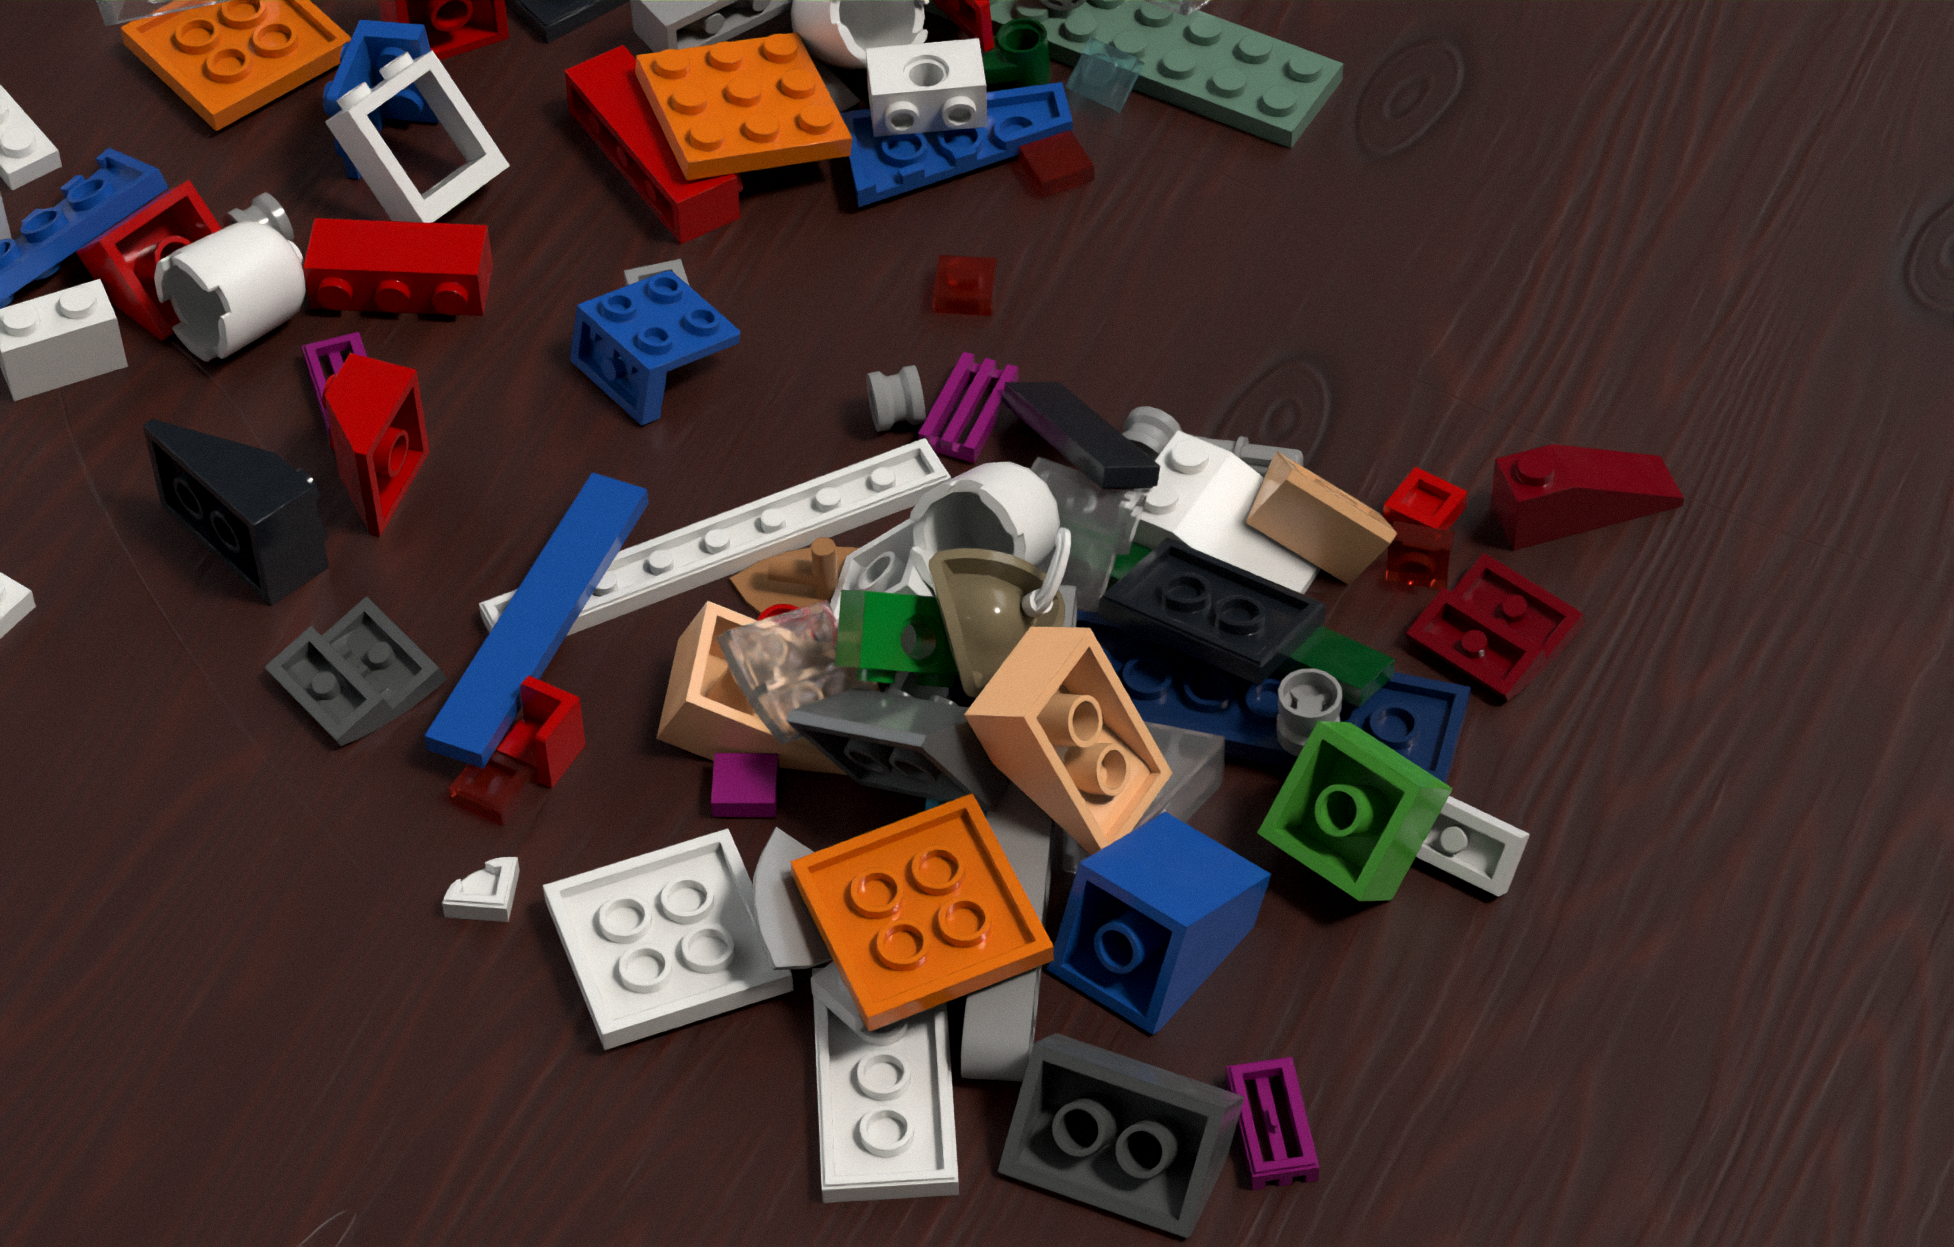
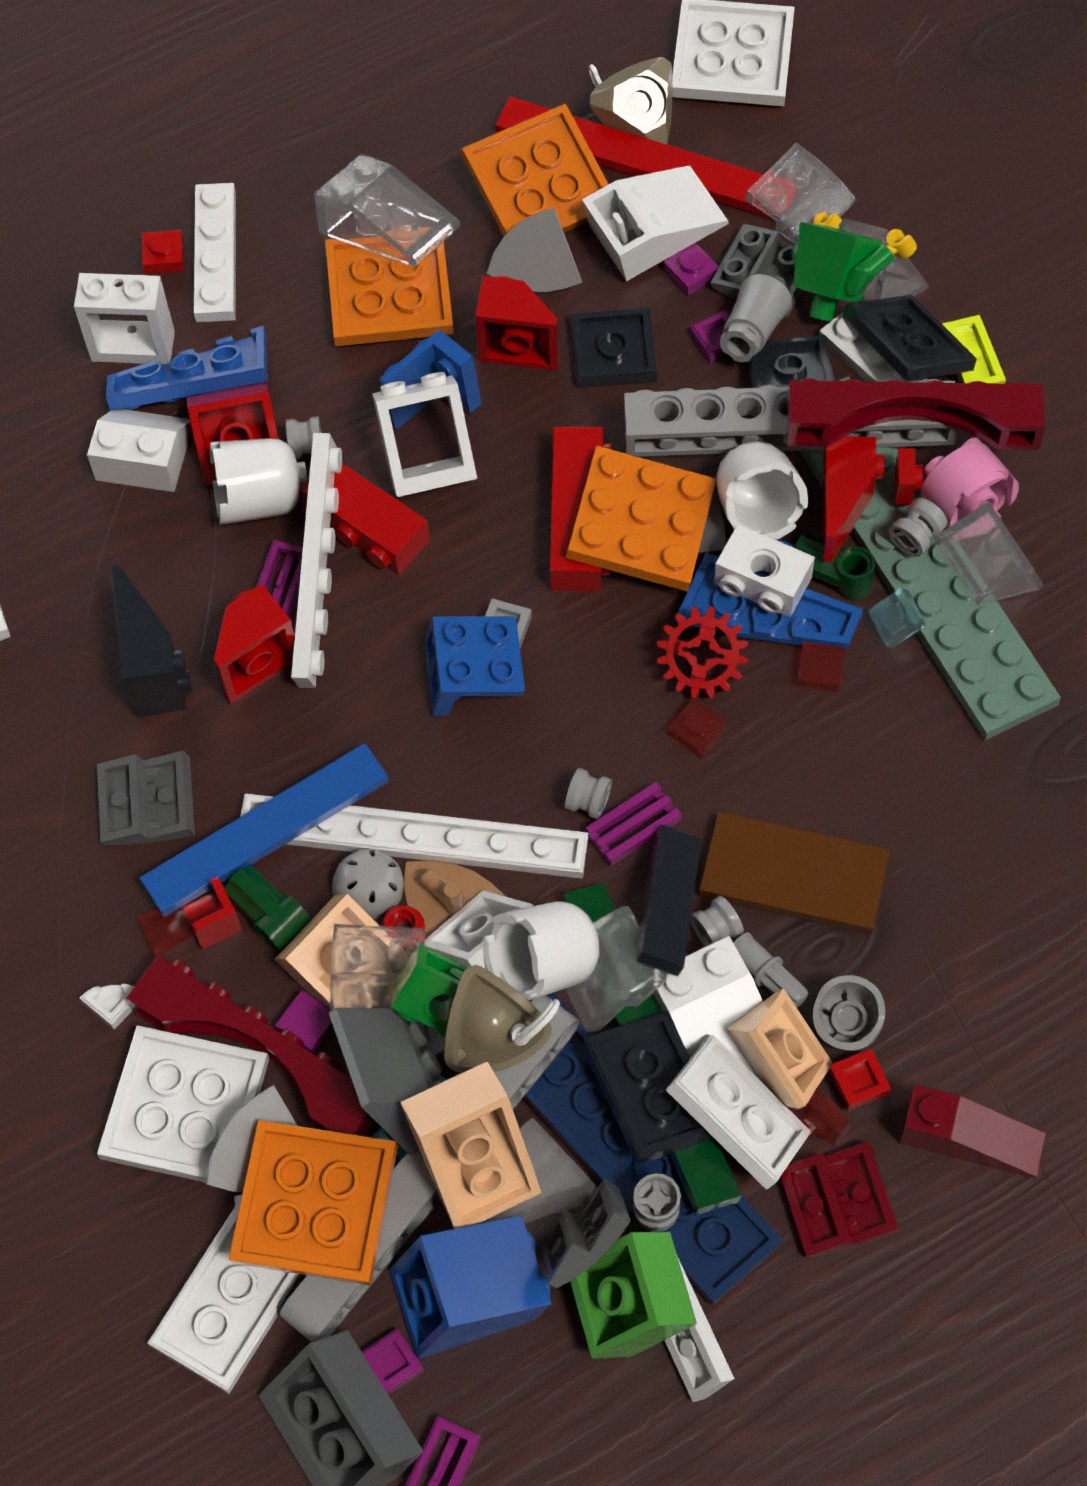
camera: 35 degrees right, 15 degrees up
(377, 303) = (315, 577): none -> white plate
(583, 831) = (182, 1005): none -> dark red arch
(622, 699) = (273, 916): none -> dark green piece
(689, 594) = (371, 877): none -> light grey helmet
(927, 181) = (699, 671): none -> red gear
(1132, 1038) = (393, 1361): none -> magenta tile
(1192, 358) = (795, 872): none -> reddish brown tile
(1261, 778) = (580, 1242): none -> dark grey slope
(1327, 582) = (739, 1111): none -> white tile
(1365, 463) = (849, 1017): none -> light grey helmet

